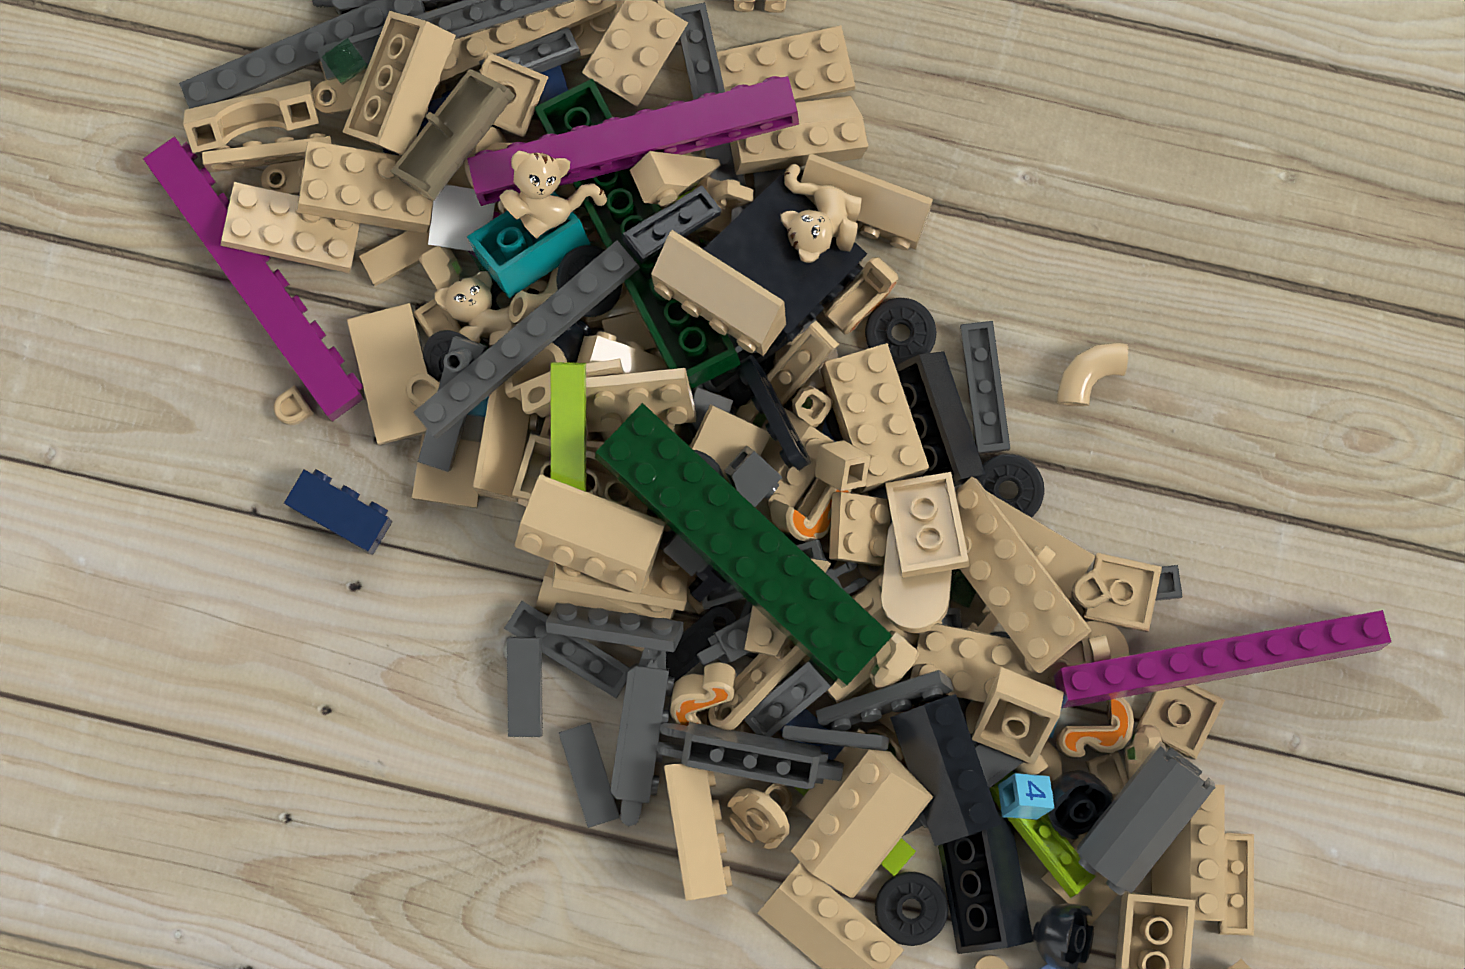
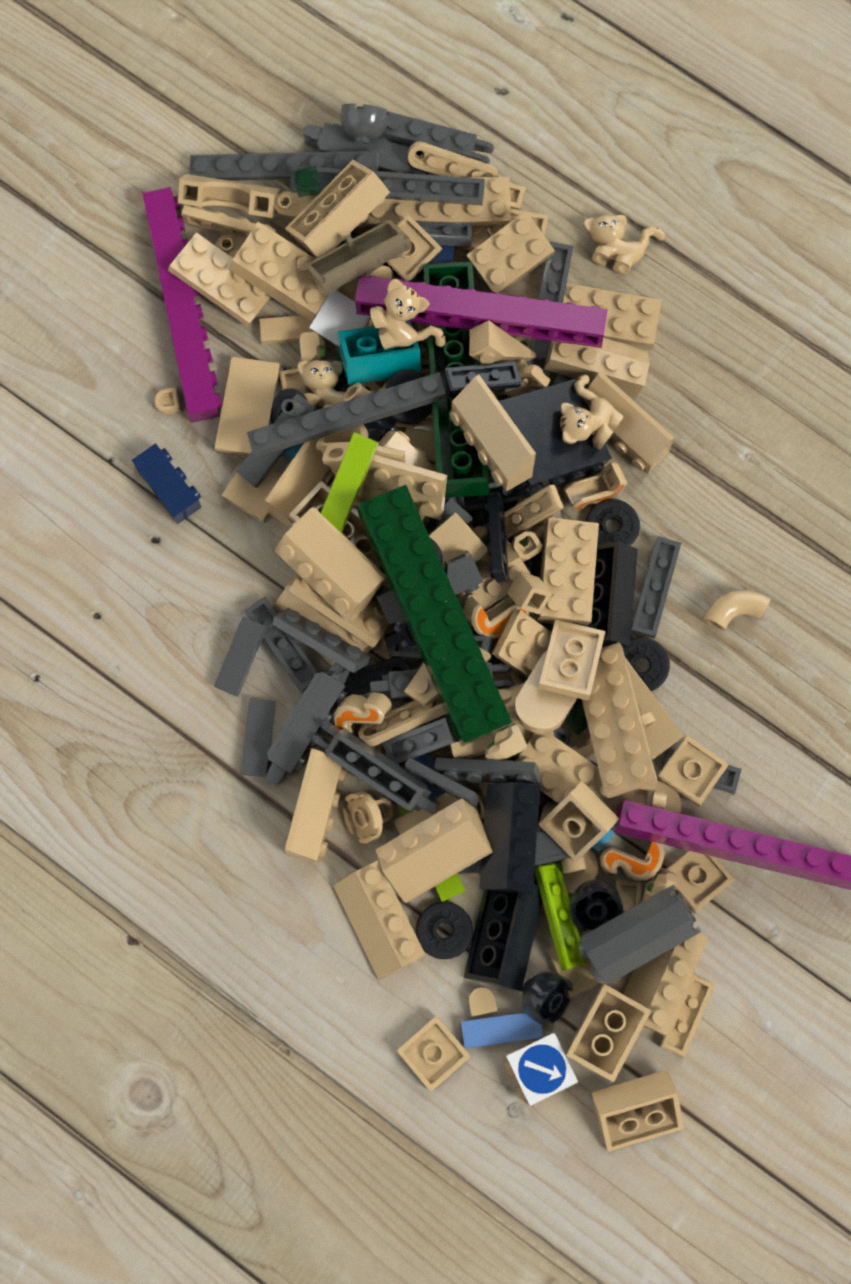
camera: 20 degrees right, 5 degrees down
(421, 388) = (260, 420): tan tile -> none
(1026, 796) = (560, 882): medium azure brick -> none
(1090, 590) = (670, 758): tan tile -> none

